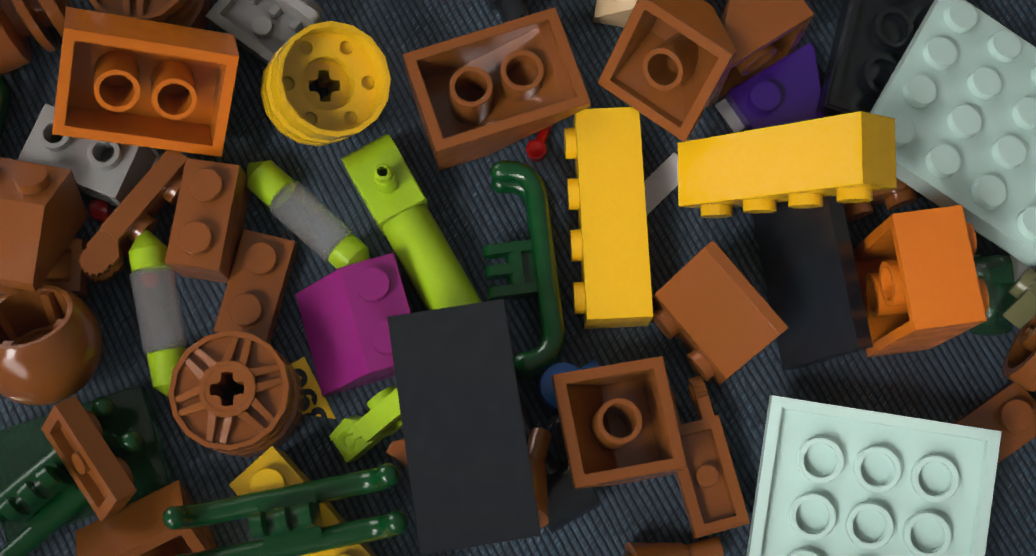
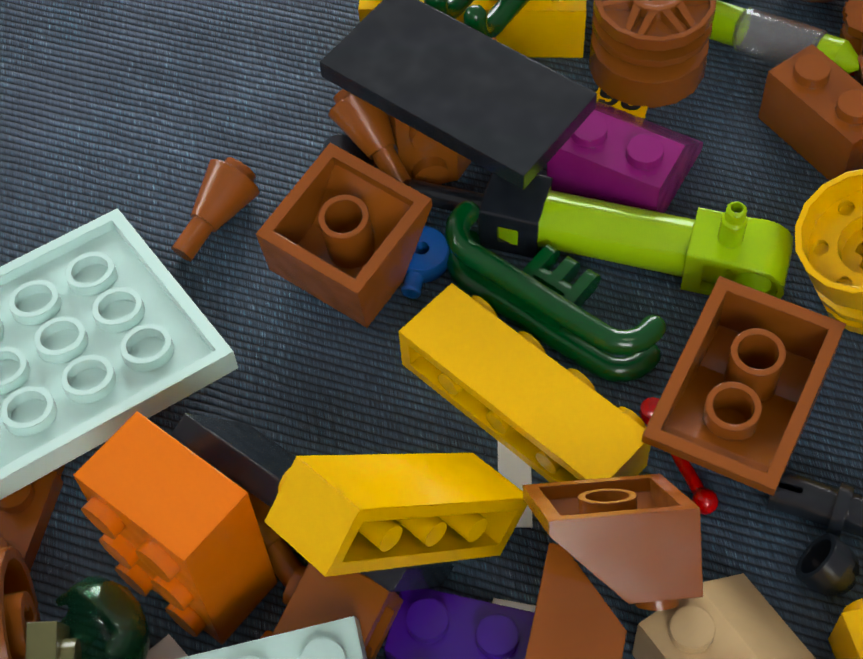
camera: 140 degrees right, 20 degrees down
(257, 285) = (737, 123): dark orange plate -> none
(305, 215) = (759, 188): piece -> none
(709, 481) = (255, 292): dark orange hinge -> none
(715, 315) = (343, 391): dark orange slope -> none

